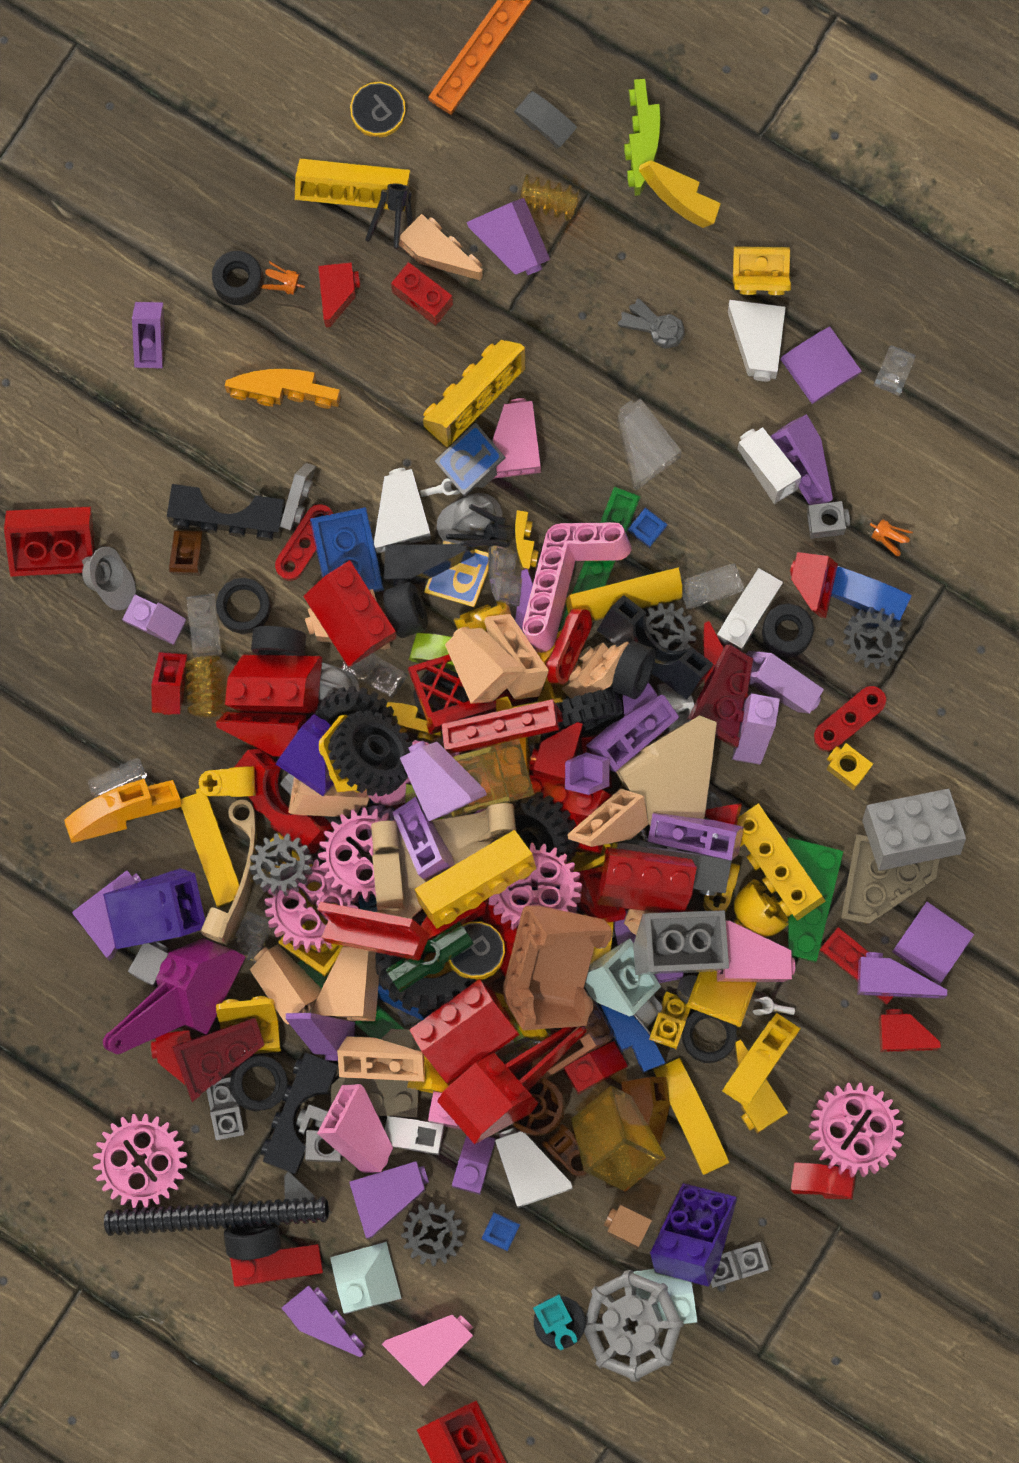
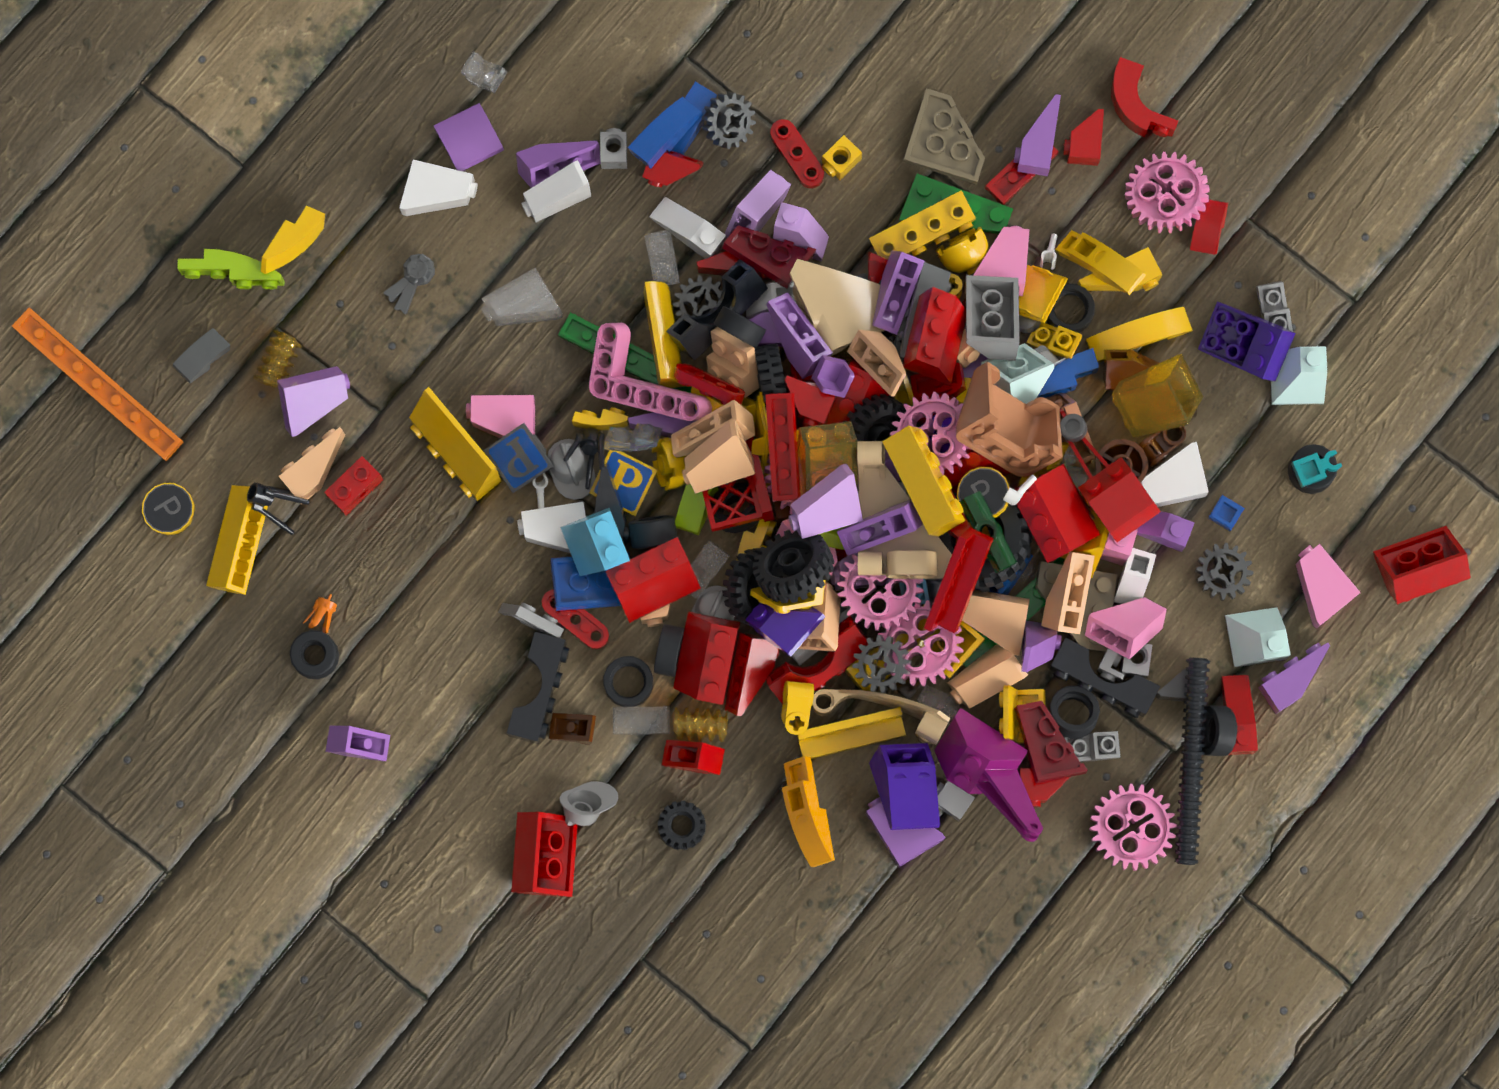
camera: 85 degrees left, 0 degrees up
(101, 696) = (677, 809): none -> black tyre
(117, 777) = (775, 814): clear slope -> none
(154, 619) = (630, 766): lavender slope -> none
(272, 384) = (422, 633): light orange slope -> none
(337, 289) = (338, 564): red slope -> none
(382, 551) = (595, 543): none -> medium azure slope
(386, 1195) = (1187, 610): medium lavender slope -> none
(472, 979) = (1013, 496): none -> white hand
(561, 1042) = (1073, 427): none -> flat silver tile
(595, 1067) = (1092, 411): red slope -> none
(627, 1226) = (1235, 397): medium nougat brick -> none
(647, 527) = (599, 309): blue tile -> none
(647, 1332) = (1331, 391): light grey plate -> none
(761, 270) = (375, 177): yellow bracket -> none
(775, 643) = (711, 180): black tyre -> none
(847, 567) = (664, 132): none -> blue slope
(886, 530) = (630, 100): orange piece -> none
(913, 829) = (907, 106): light grey brick -> none
(933, 943) = (1007, 106): medium lavender slope -> none
(968, 1070) = (1129, 106): none -> red arch

